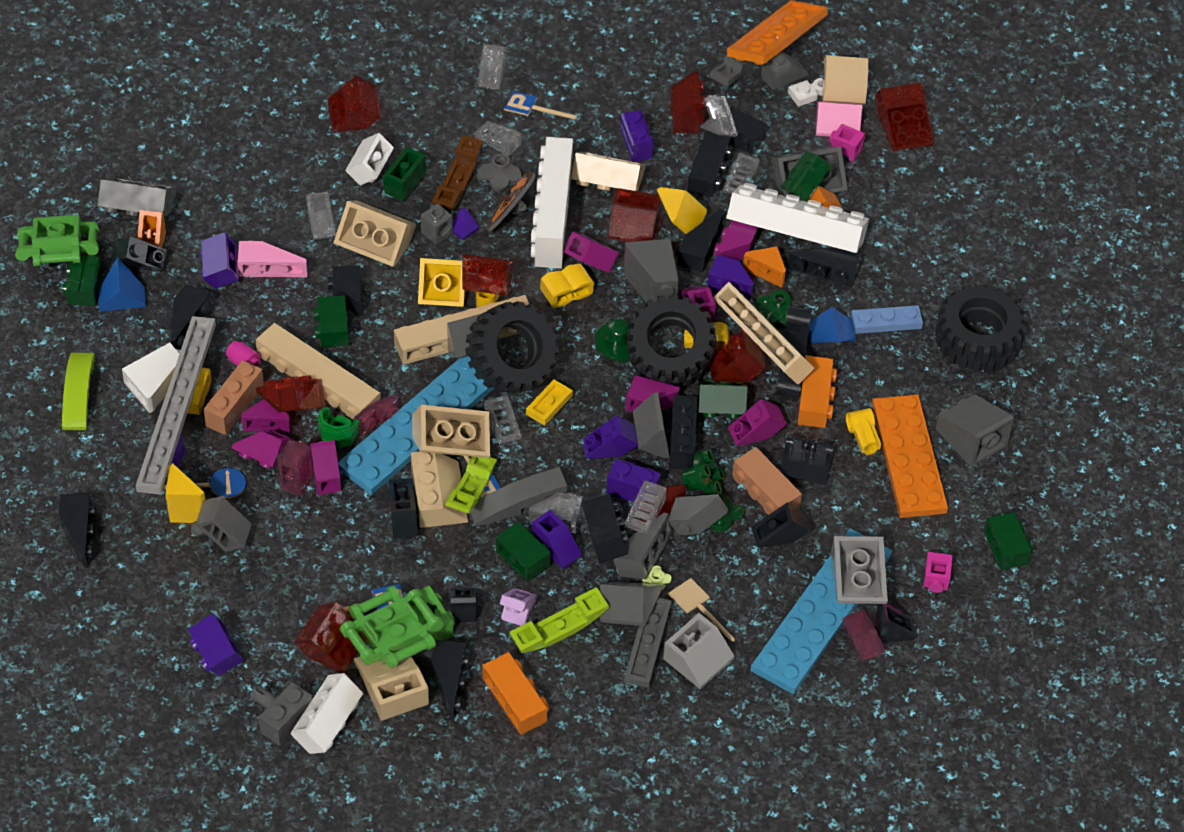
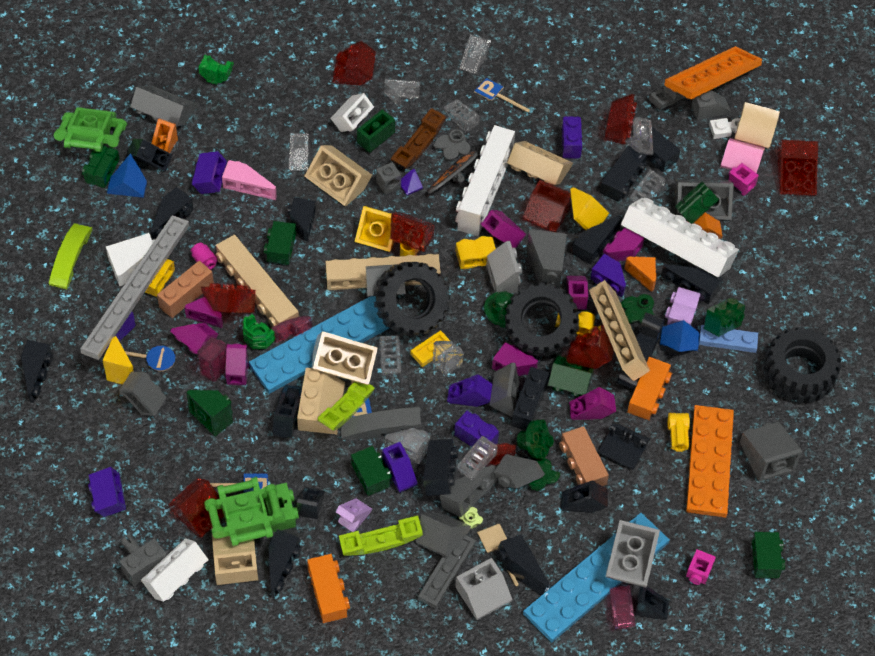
camera: 15 degrees right, 5 degrees up
(186, 146) = (214, 71): none -> green hair
(310, 524) = (210, 409): none -> dark green slope
(414, 123) = (399, 88): none -> clear slope
(571, 406) = (447, 356): none -> clear slope
(606, 294) = (504, 269): none -> light grey slope
(731, 612) = (520, 561): none -> black slope
(825, 293) = (683, 306): none -> lavender brick
(877, 294) = (724, 317): none -> dark green brick

